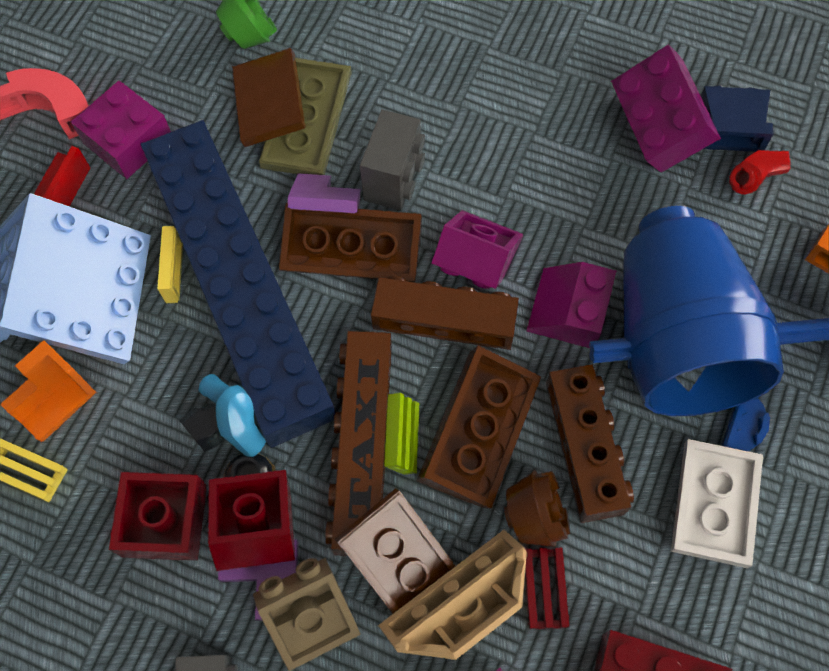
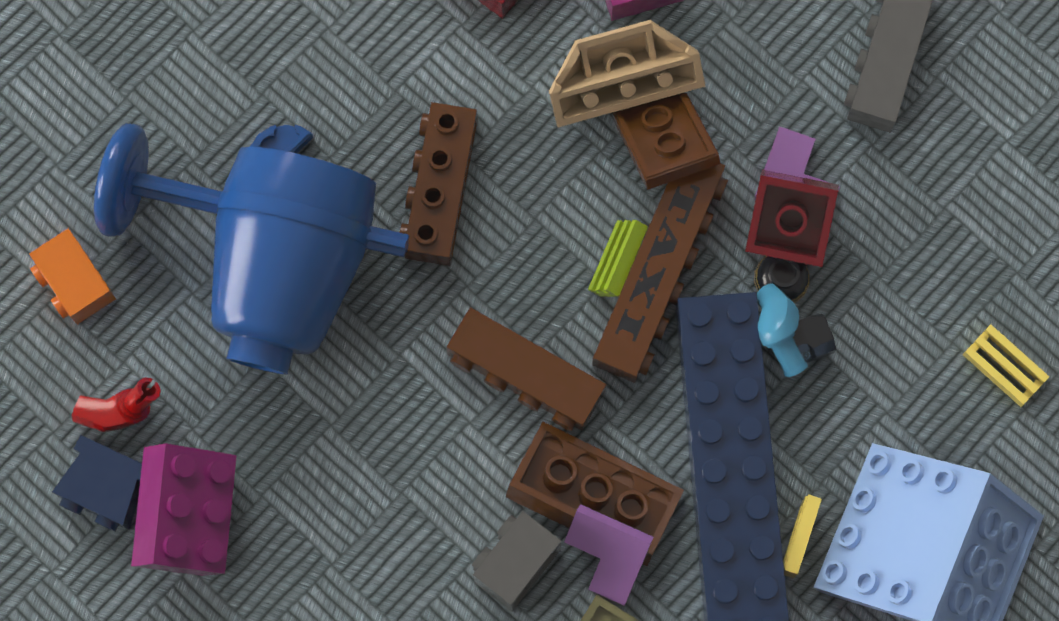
camera: 160 degrees left, 10 degrees up
(49, 394) = (963, 428): orange panel -> none
(158, 516) = (880, 257): dark red brick -> none
(305, 612) = (767, 122): dark tan plate -> none
(476, 249) = (460, 431): magenta slope -> none
(479, 428) = (537, 241): reddish brown slope -> none
(537, 510) = (519, 132): reddish brown cone -> none
(548, 623) = (547, 43): dark red tile -> none
(572, 302) = (389, 332): magenta slope -> none
(717, 503) = (343, 86): white plate -> none

